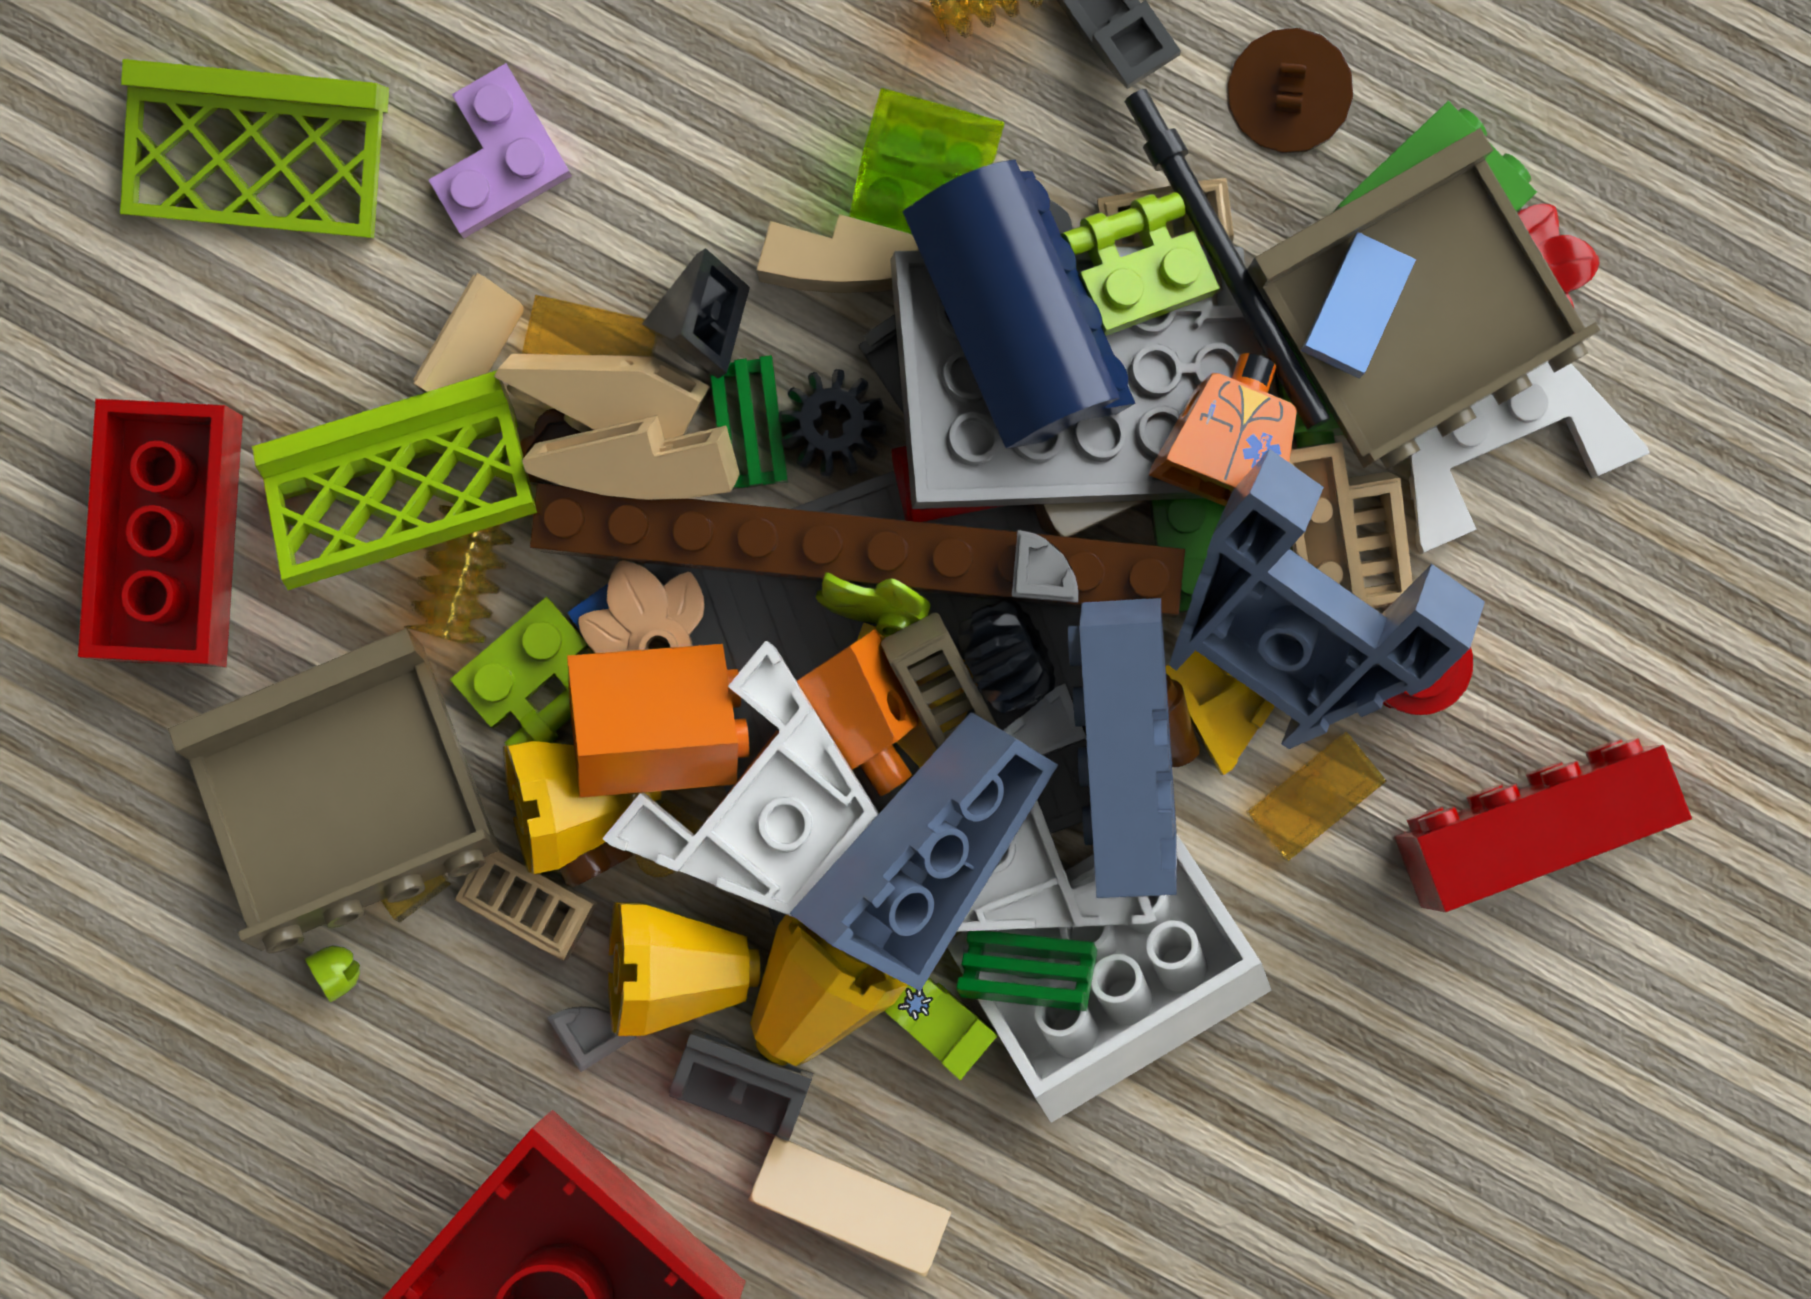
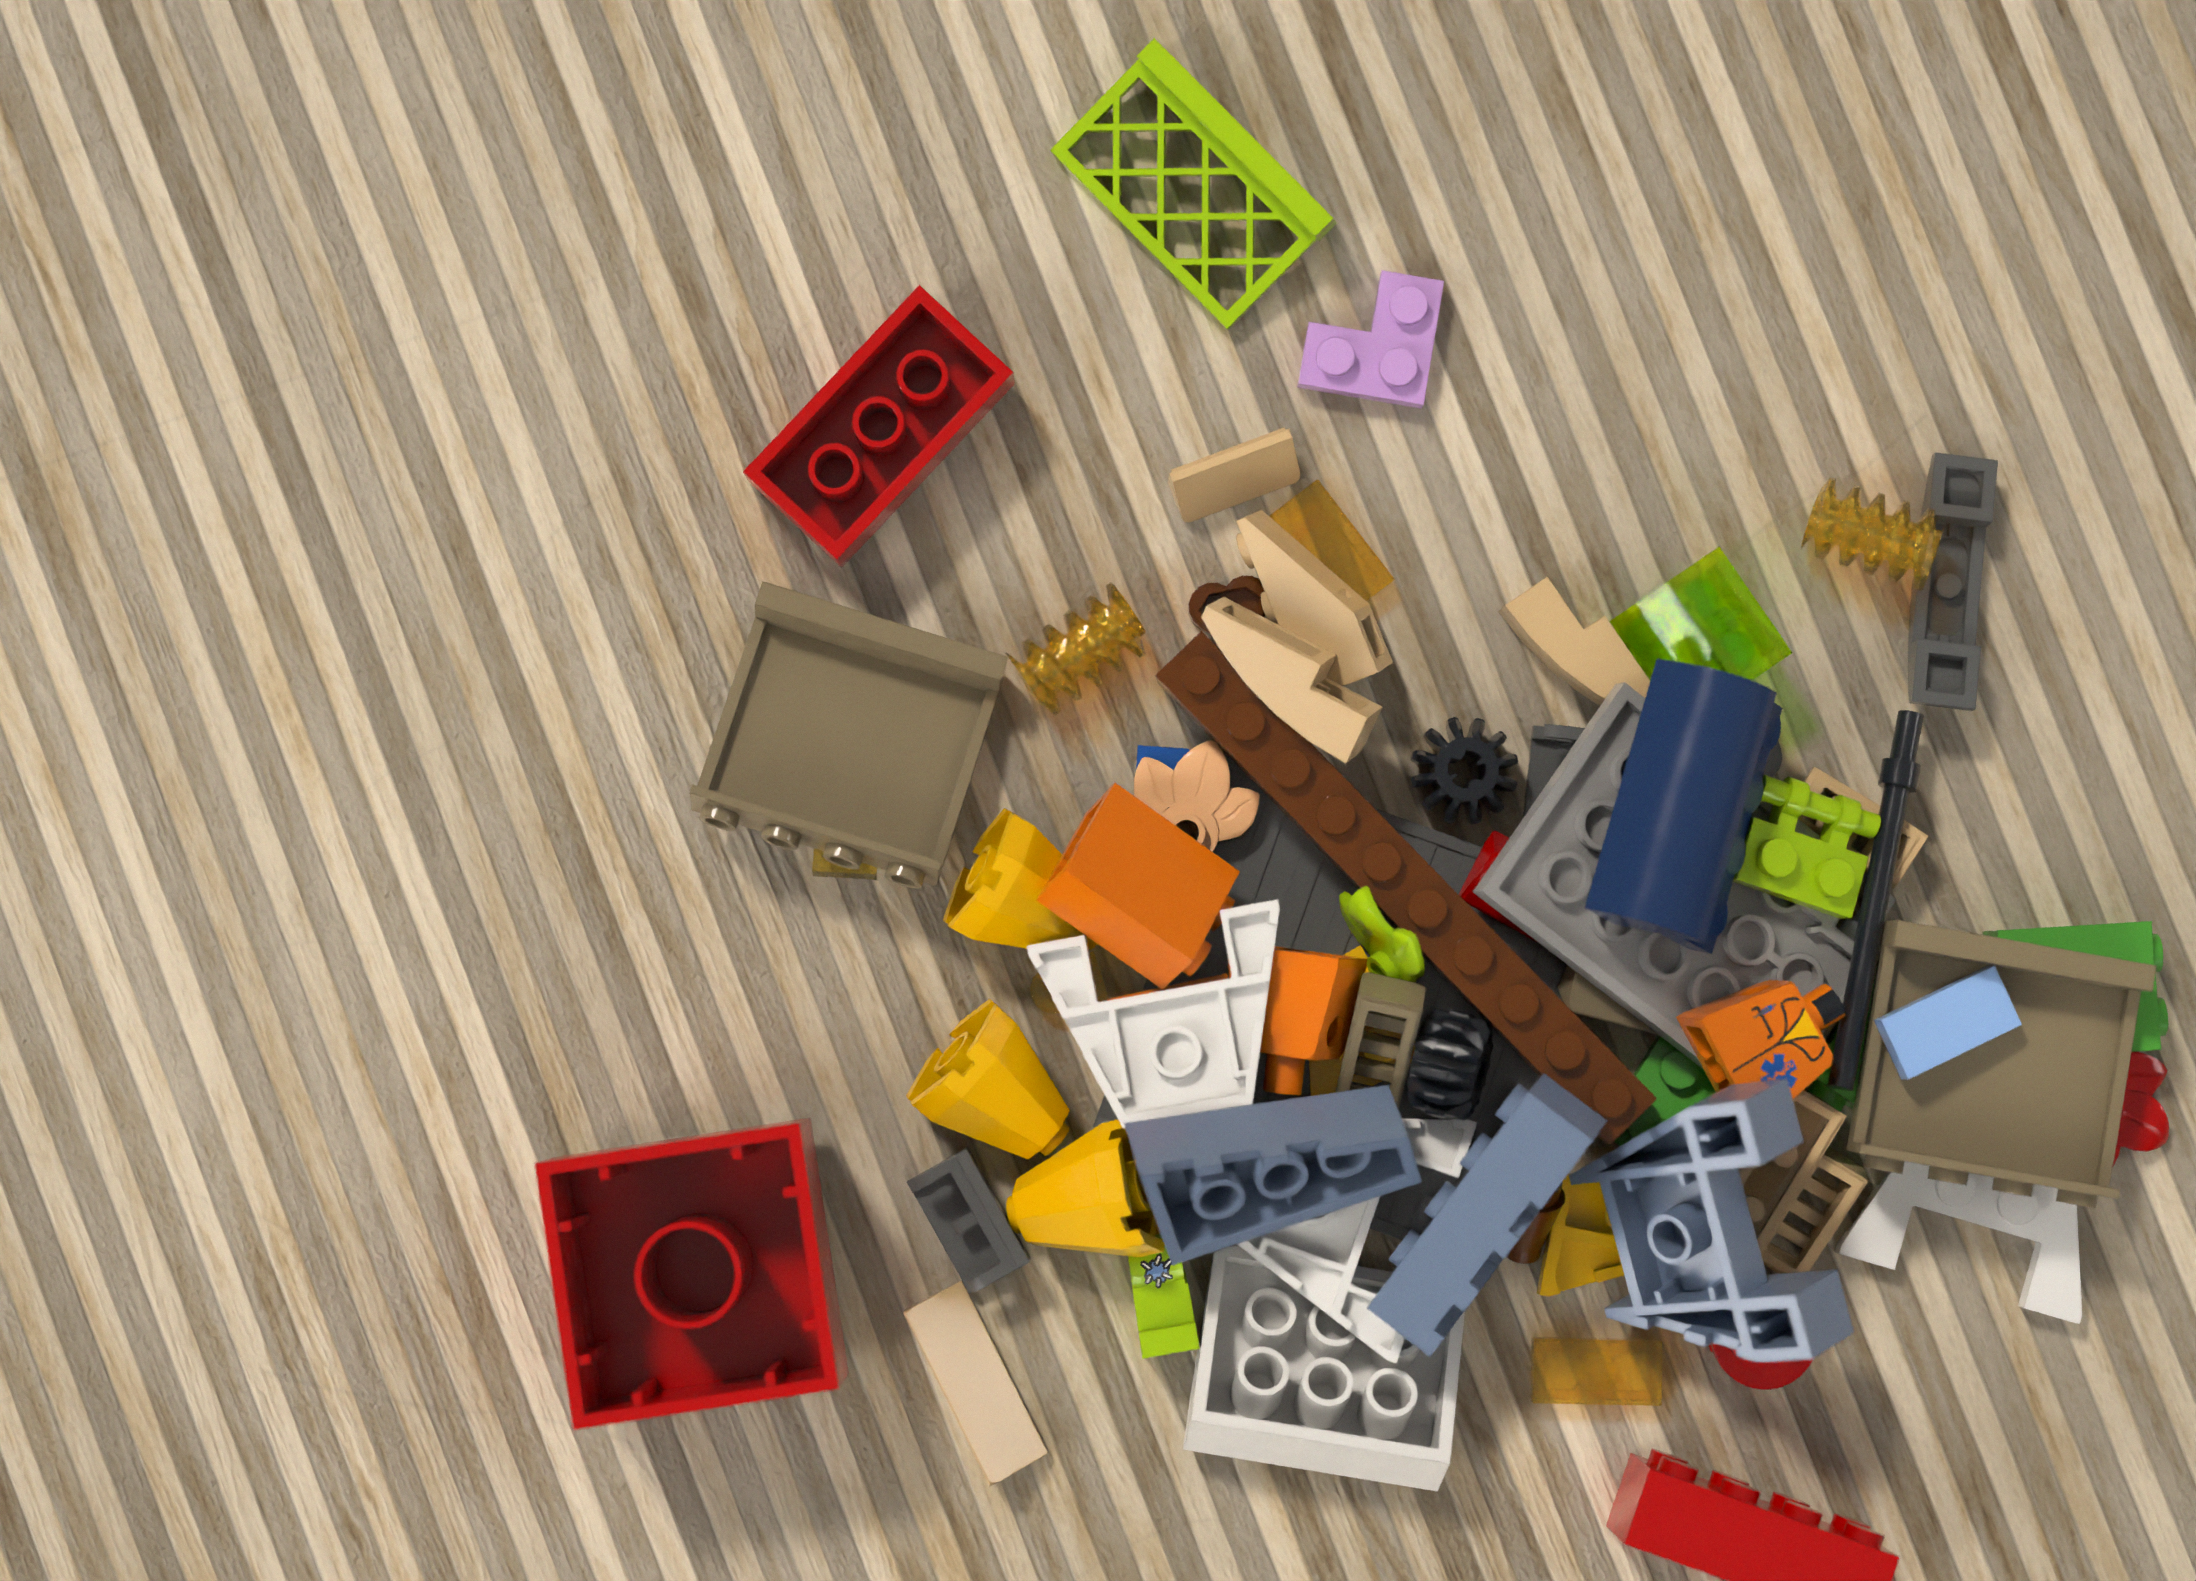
camera: 35 degrees right, 0 degrees up
(334, 970) = (731, 870): lime hinge -> none
(387, 442) = (1109, 500): lime fence -> none
(519, 666) = (1066, 754): lime plate -> none
(572, 926) = (941, 989): tan slope -> none
(587, 1034) = (883, 1082): light grey tile -> none
(593, 864) = (1000, 956): reddish brown tile -> none
(701, 314) = (1433, 603): black slope -> none
(742, 369) = (1428, 669): green tile -> none
(1032, 946) = (1281, 1301): green tile -> none
(1042, 571) = (1534, 1024): light grey tile -> none
(1290, 90) = (2036, 807): reddish brown piece -> none

